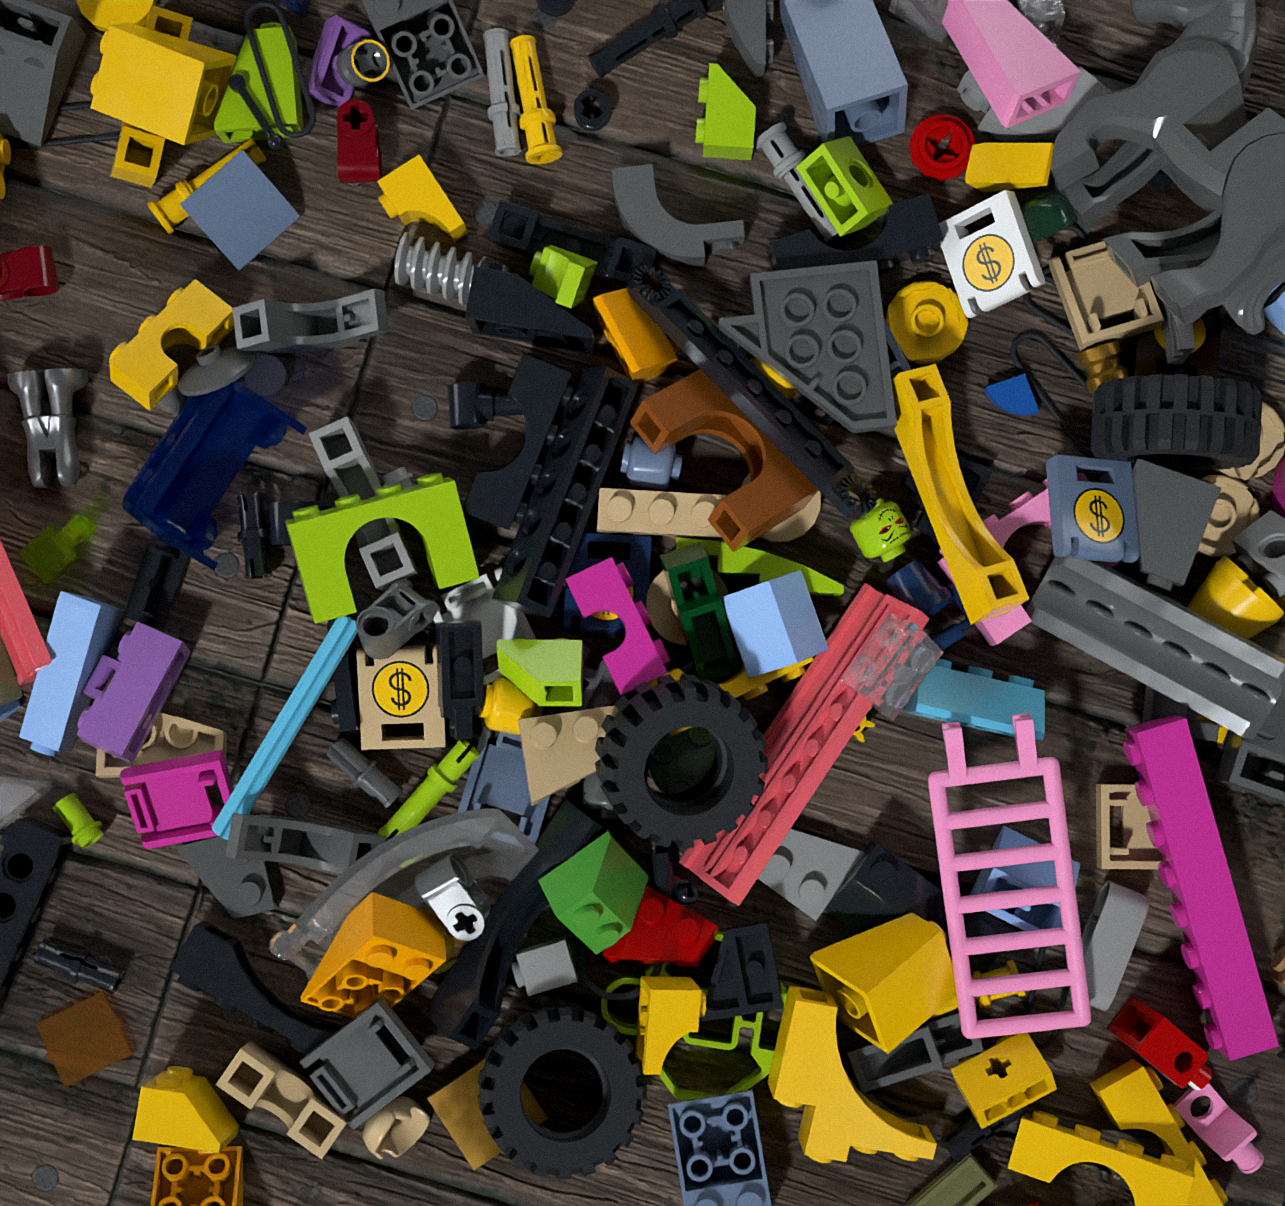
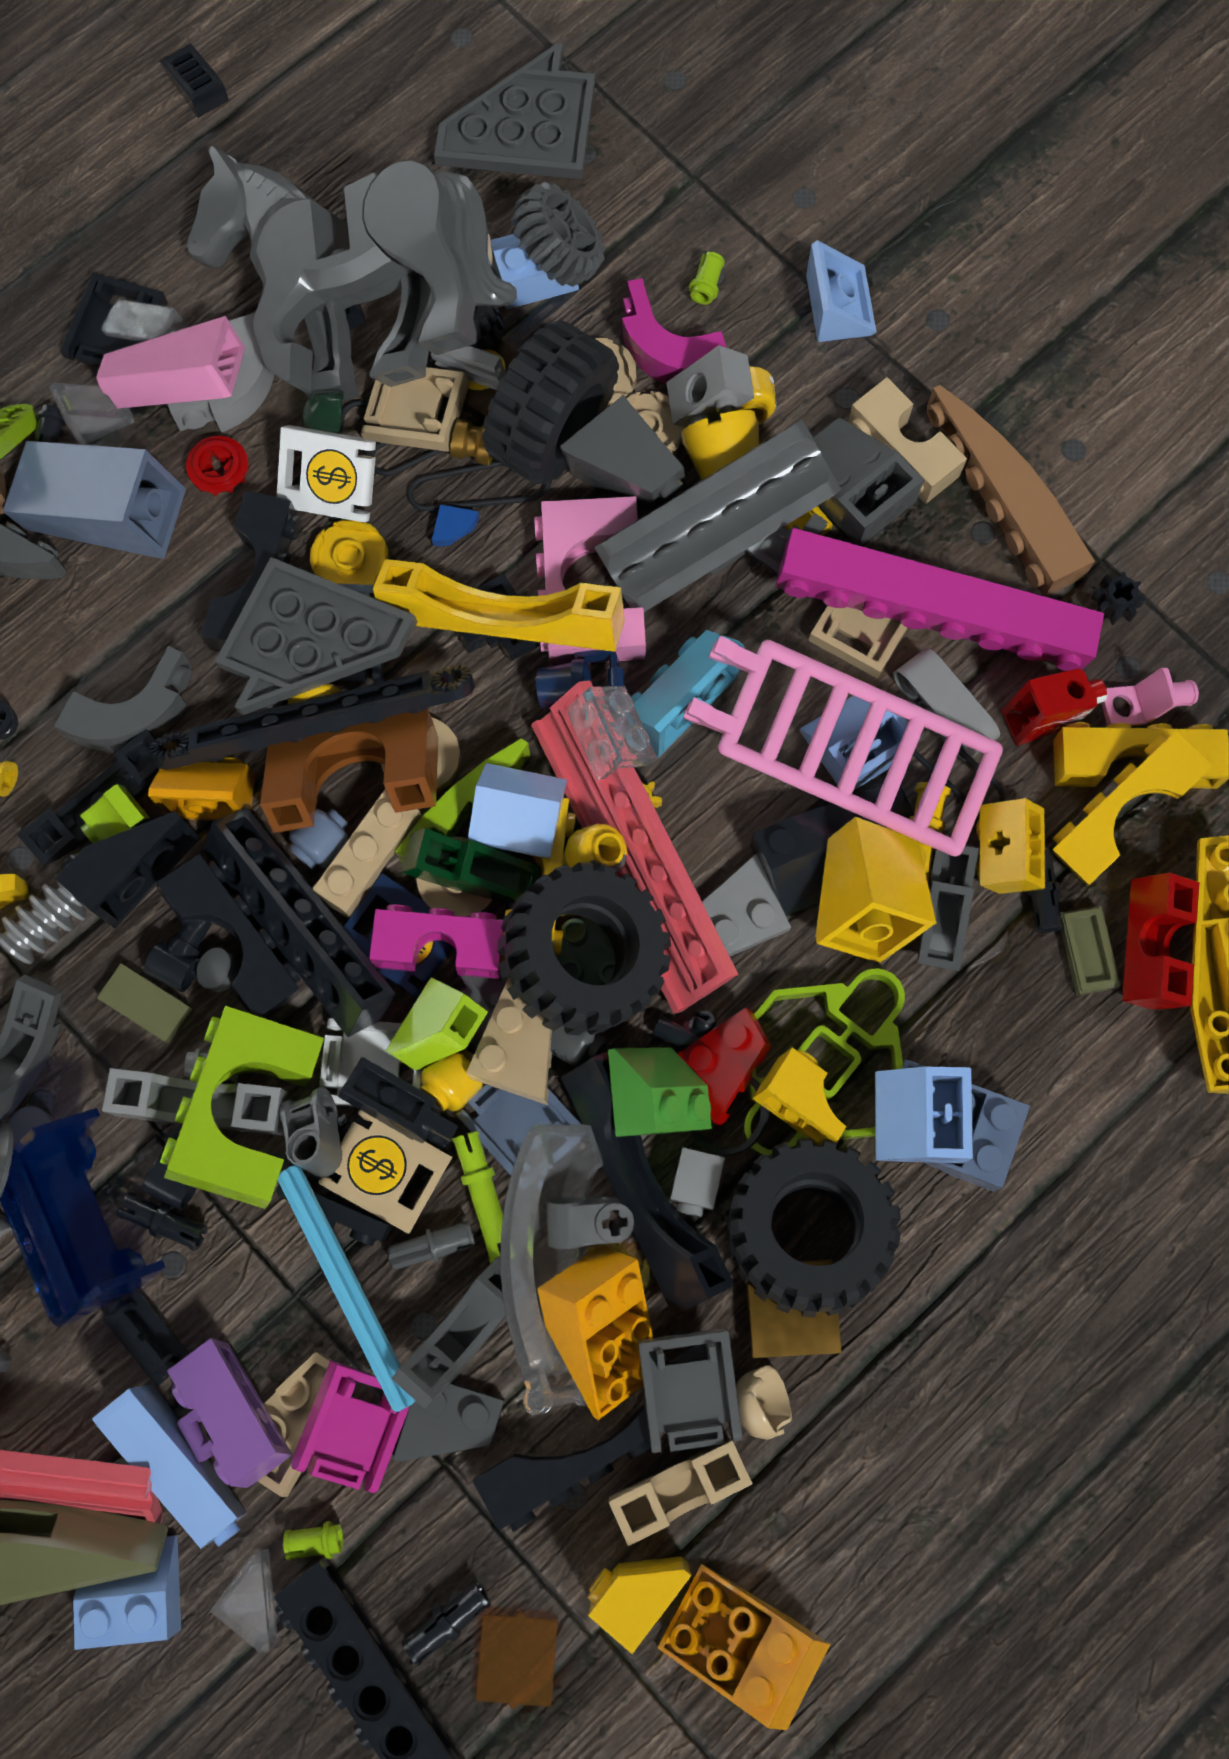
camera: 60 degrees left, 10 degrees down
(54, 551) = (57, 1417): clear neon green plate -> none
(423, 401) = (144, 1003): none -> olive tile
(487, 446) = (217, 969): none -> dark grey tile
(706, 1138) = (923, 1115): none -> light blue slope
(728, 118) = (79, 613): lime slope -> none
(744, 974) = (800, 1008): black wing -> none
(778, 714) = (597, 845): none -> yellow head
(785, 169) = (150, 585): light grey pin -> none
(835, 1112) = (921, 999): yellow arch -> none
(844, 185) = (195, 553): lime brick -> none
(882, 531) = (496, 686): lime head -> none
(1009, 165) = (262, 421): yellow slope -> none
(1092, 514) = (585, 510): sand blue container -> none

